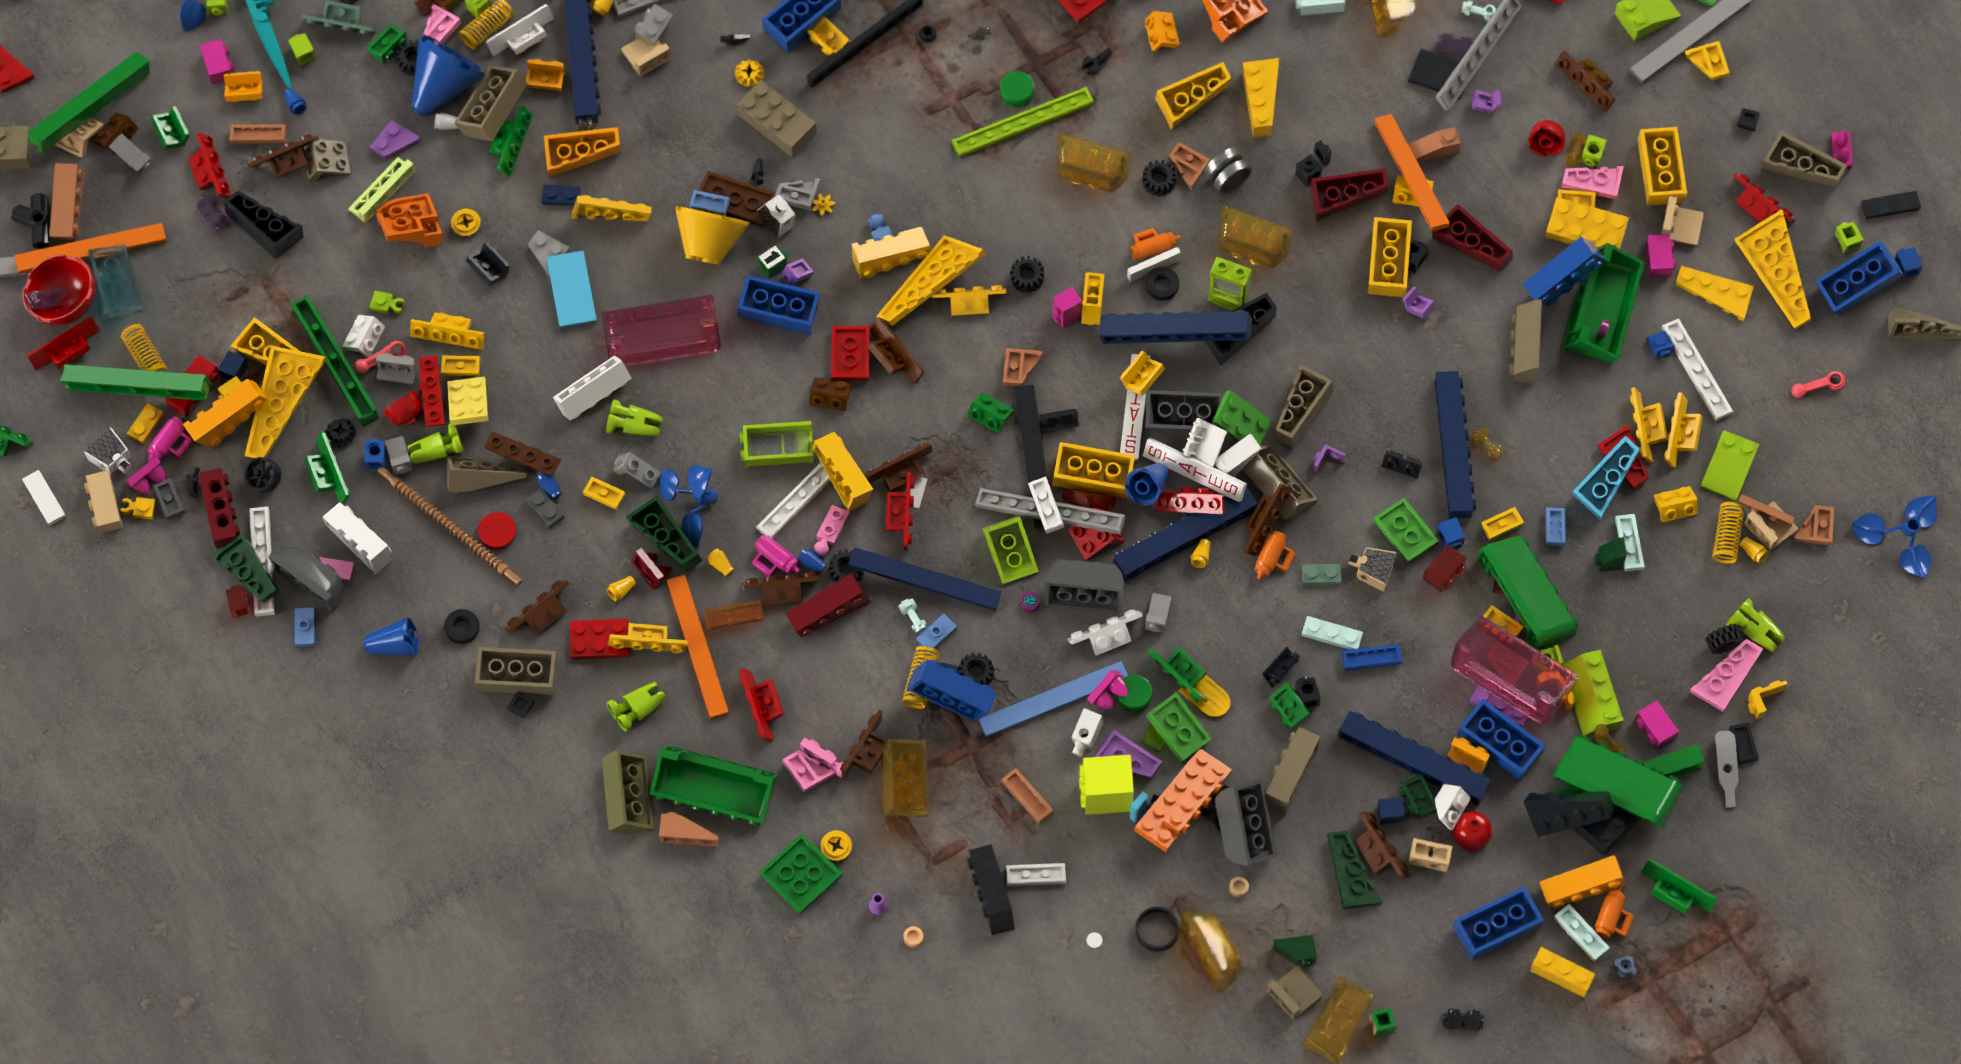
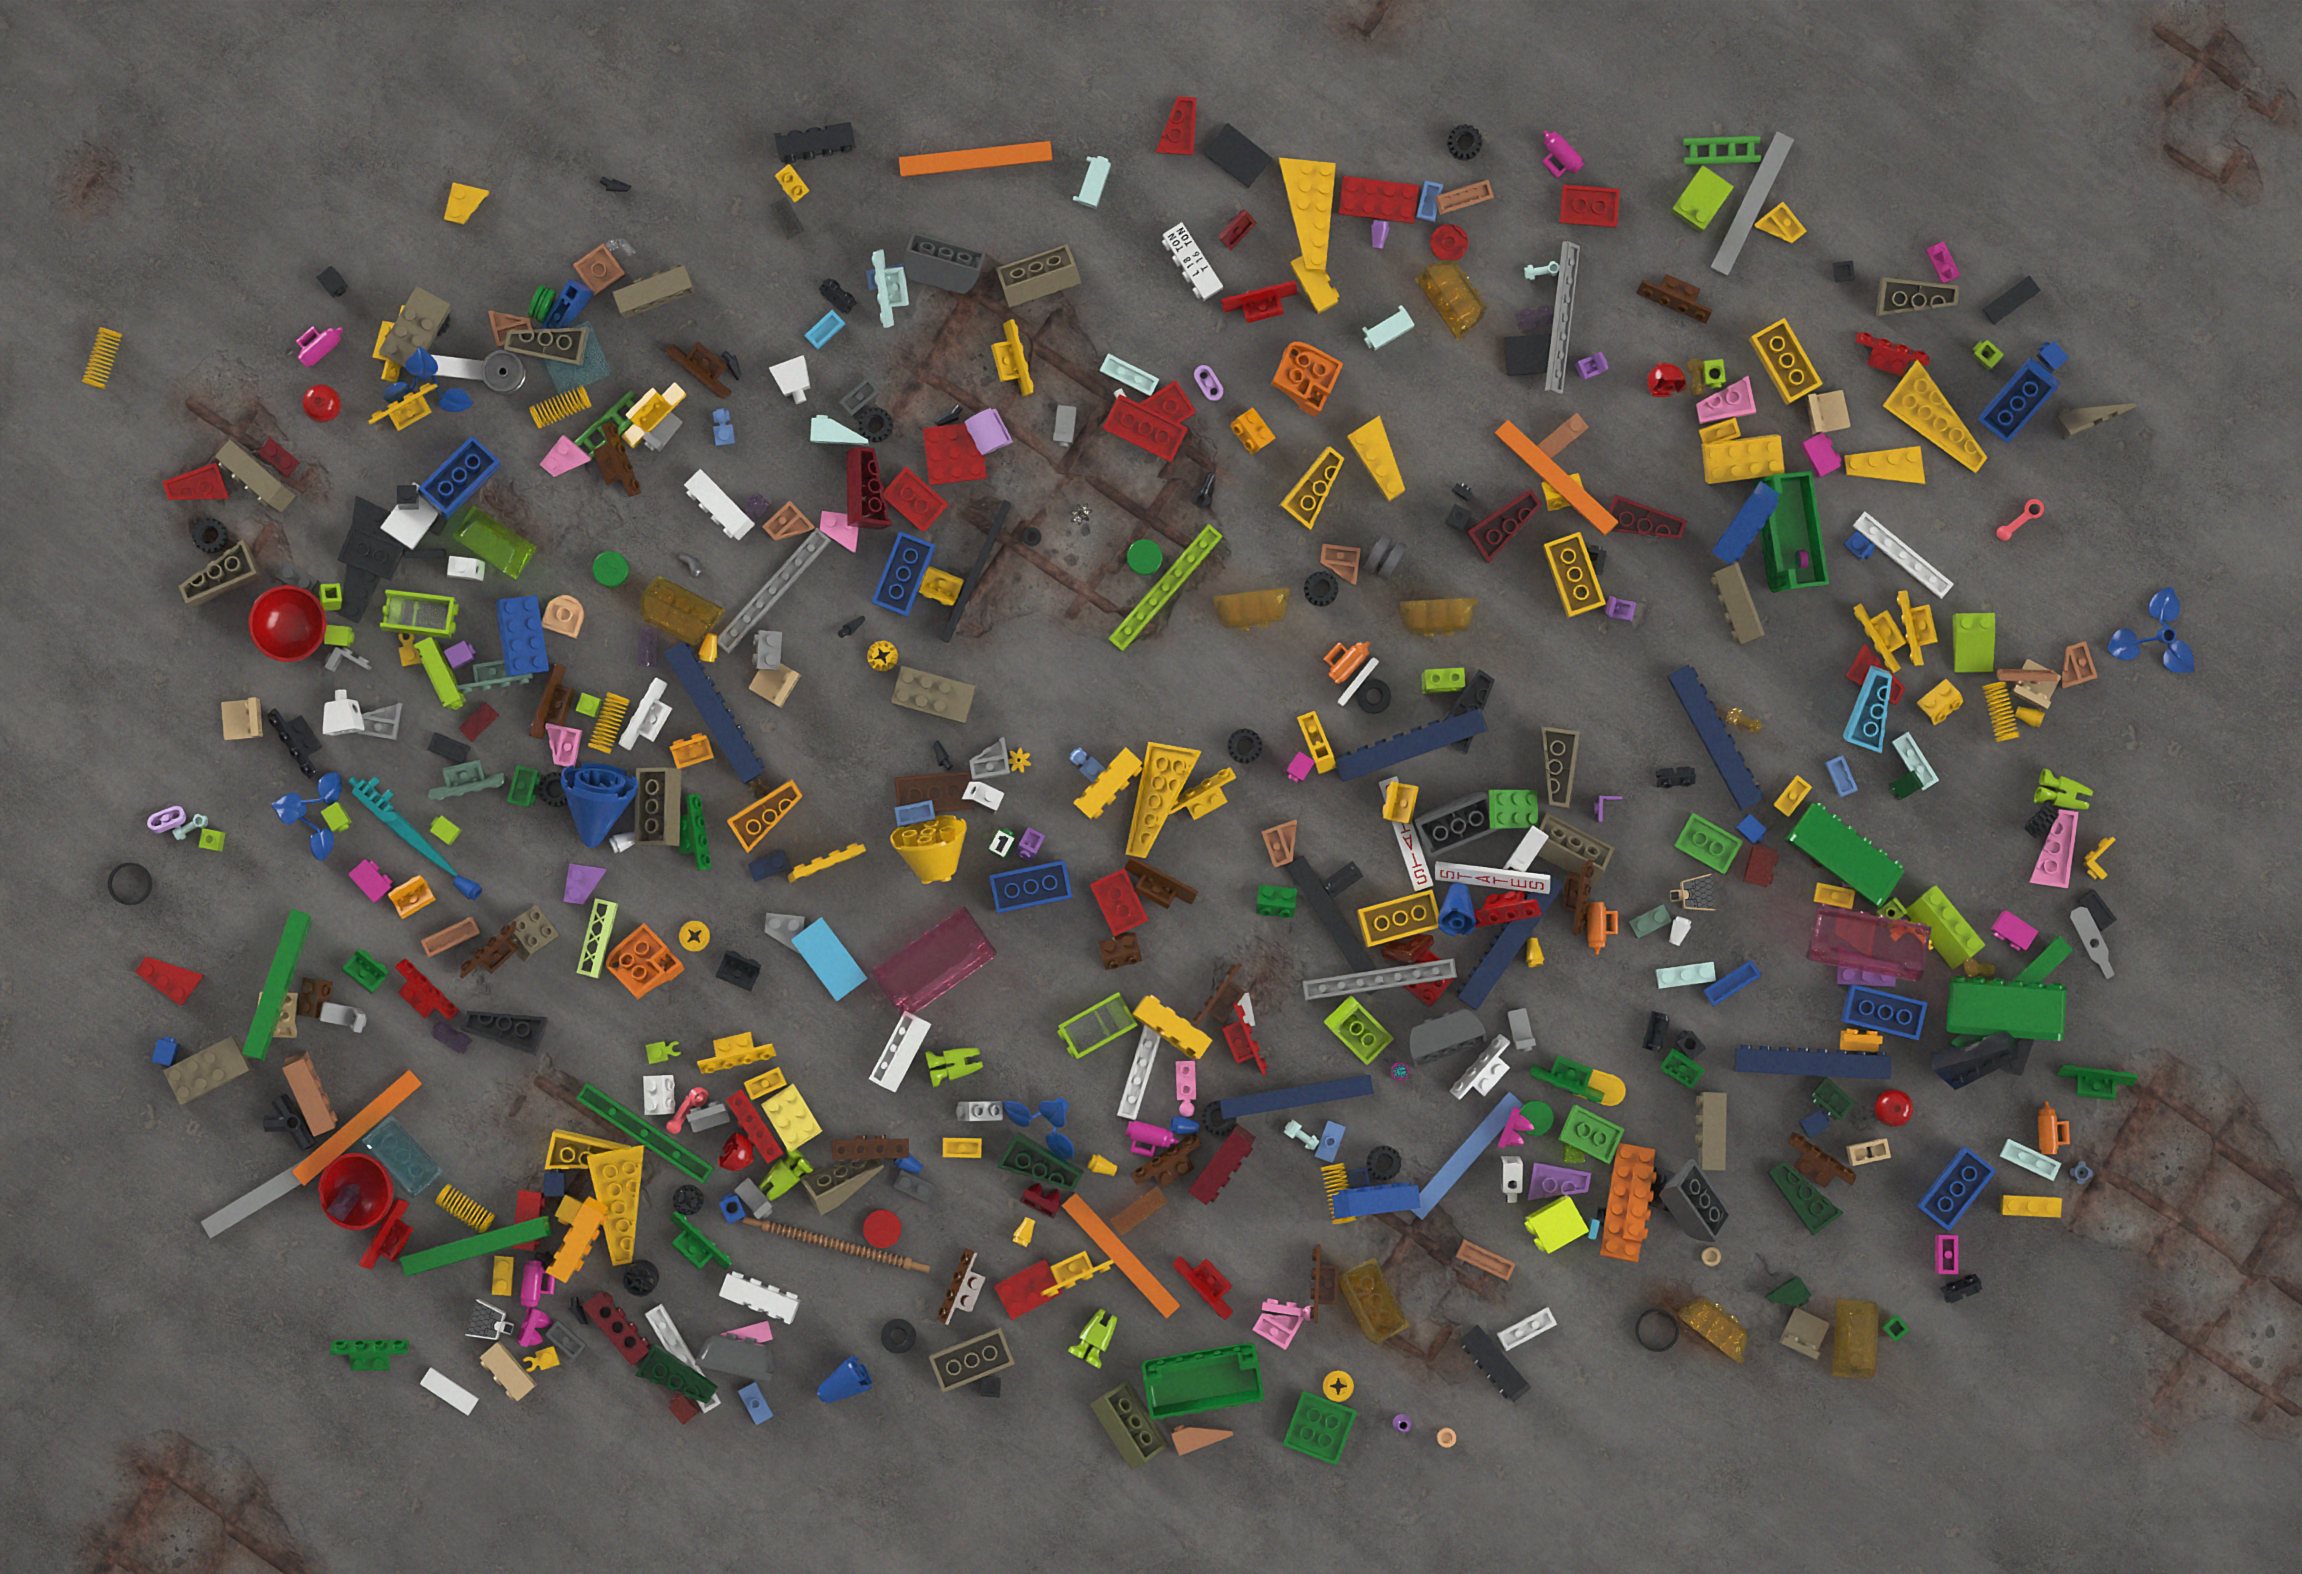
camera: 25 degrees left, 20 degrees up
(1046, 505) = (1375, 977): white tile -> none
(1094, 940) = (1606, 1364): white sticker -> none
(1204, 442) = (1492, 850): white hinge -> none
(1344, 591) = (1679, 930): none -> white cone
(1451, 804) = (1865, 1096): white slope -> none
(1462, 978) = (1946, 1254): none -> dark pink brick
(1583, 882) = (2013, 1115): light orange wedge -> none

